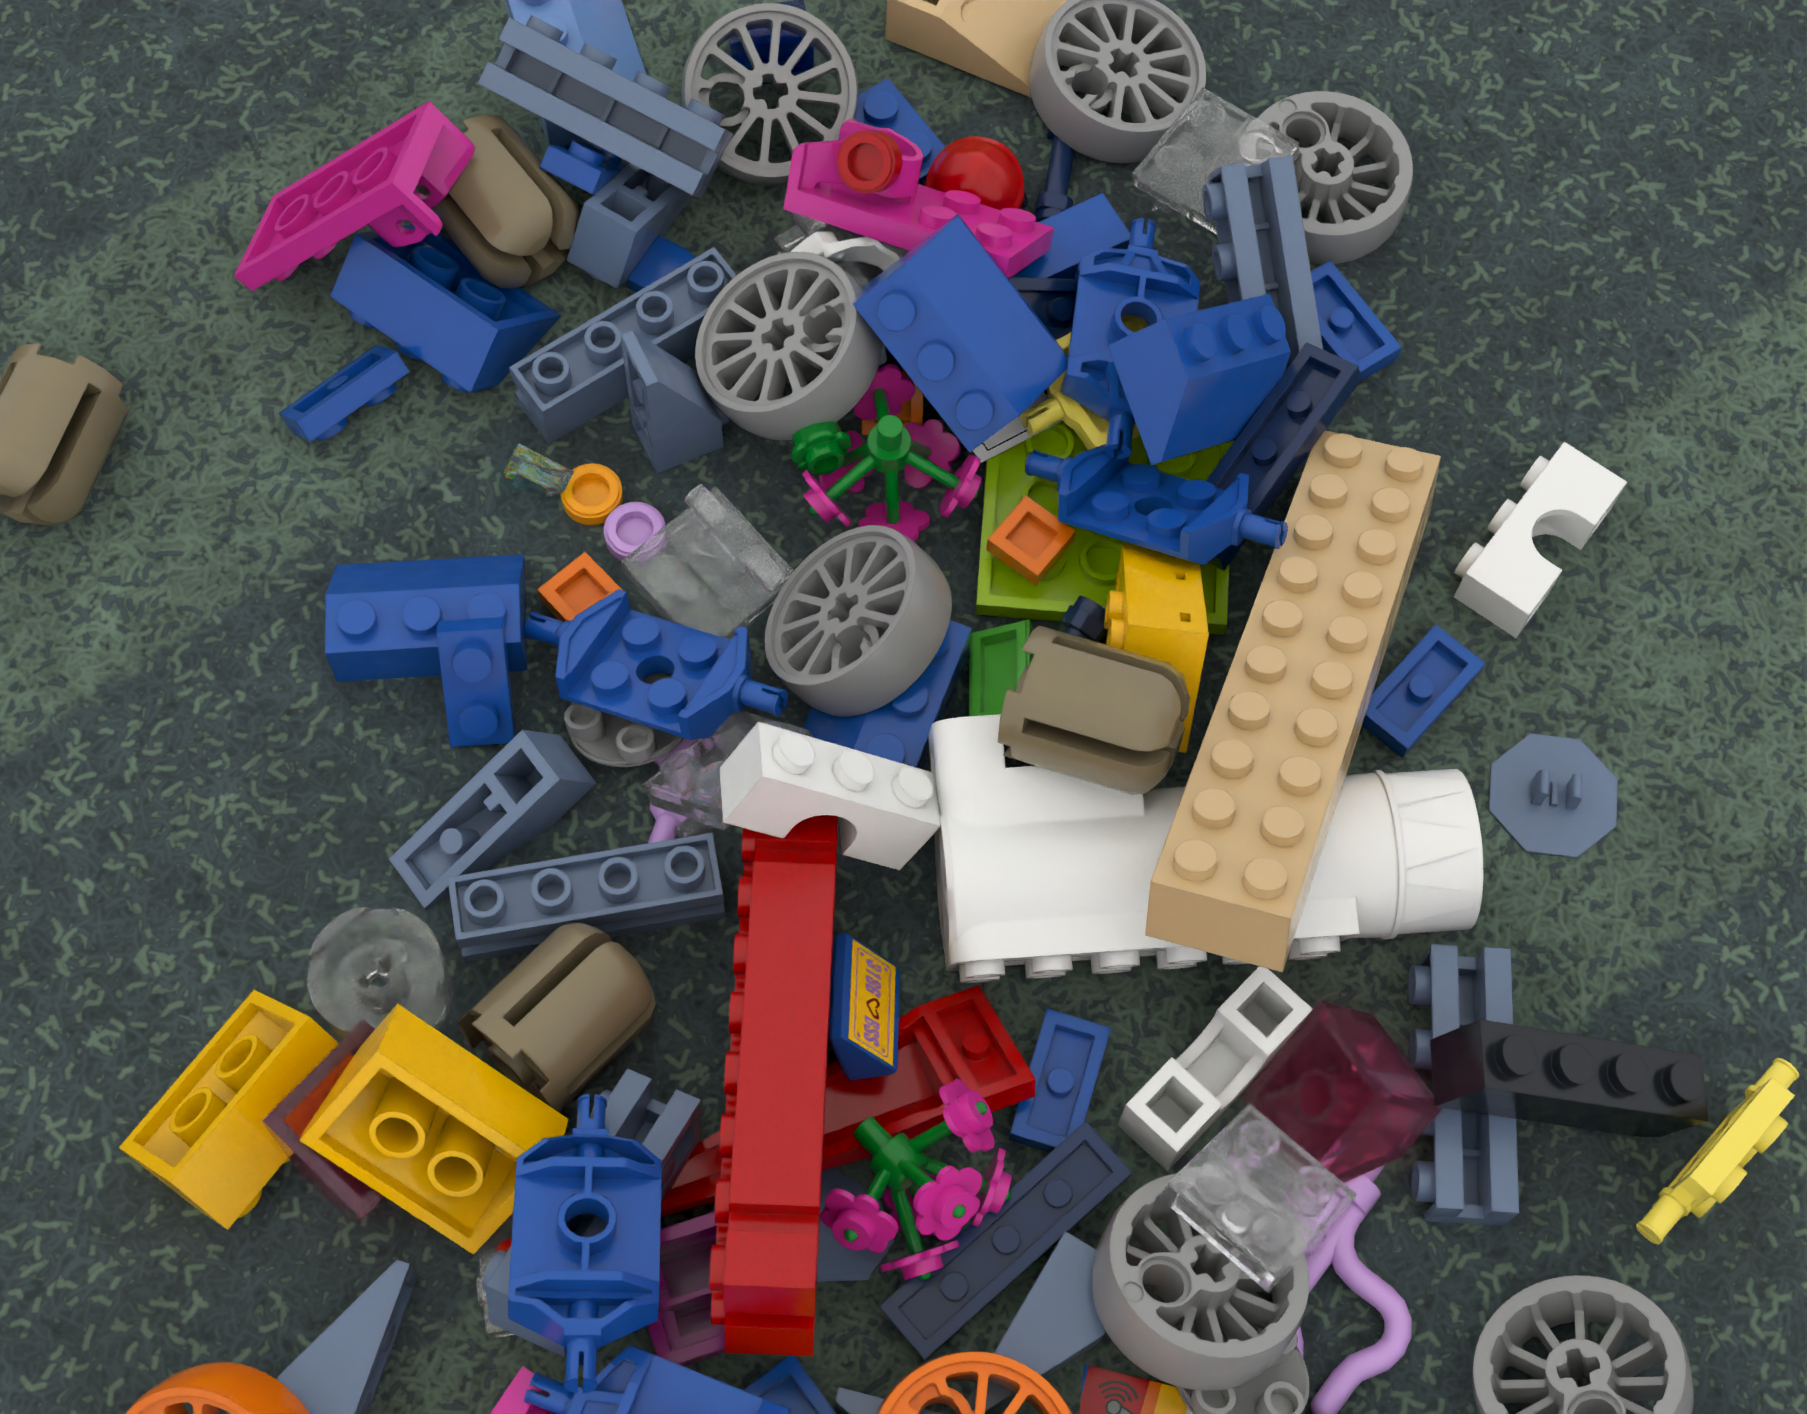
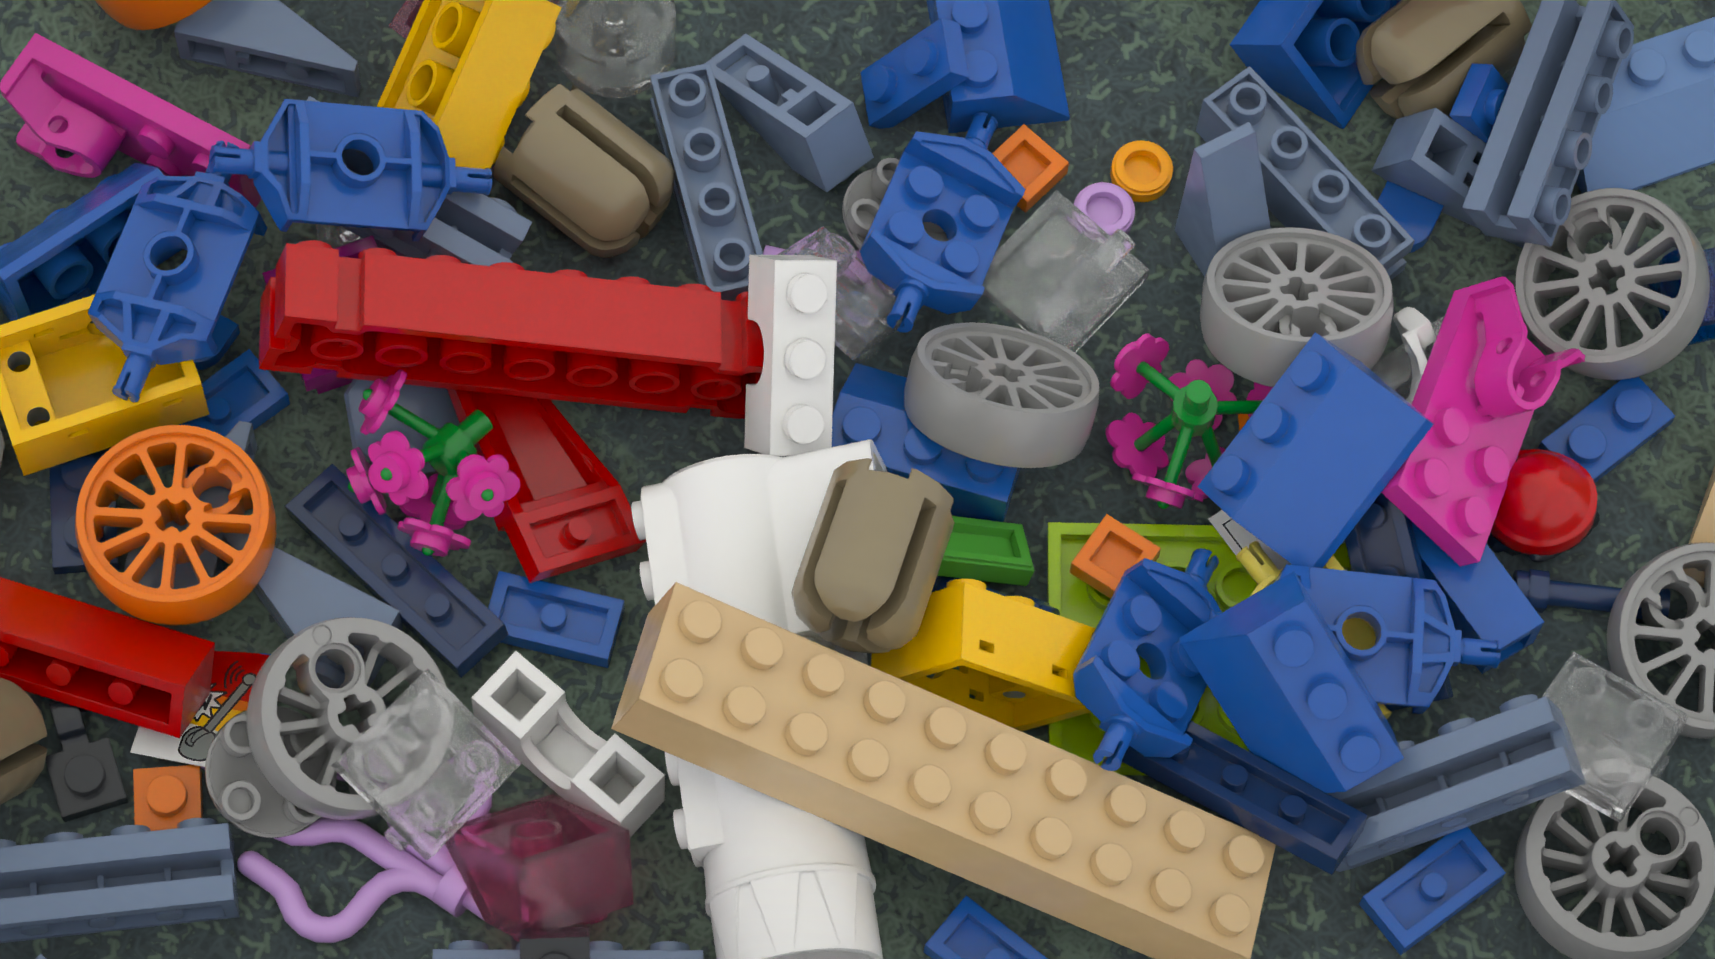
camera: 85 degrees right, 0 degrees up
(531, 467) = (1151, 111): clear light blue tile -> none
(820, 447) = (1191, 352): green plate -> none
(863, 1010) = (610, 430): slope -> none
(869, 161) = (1497, 346): red tile -> none

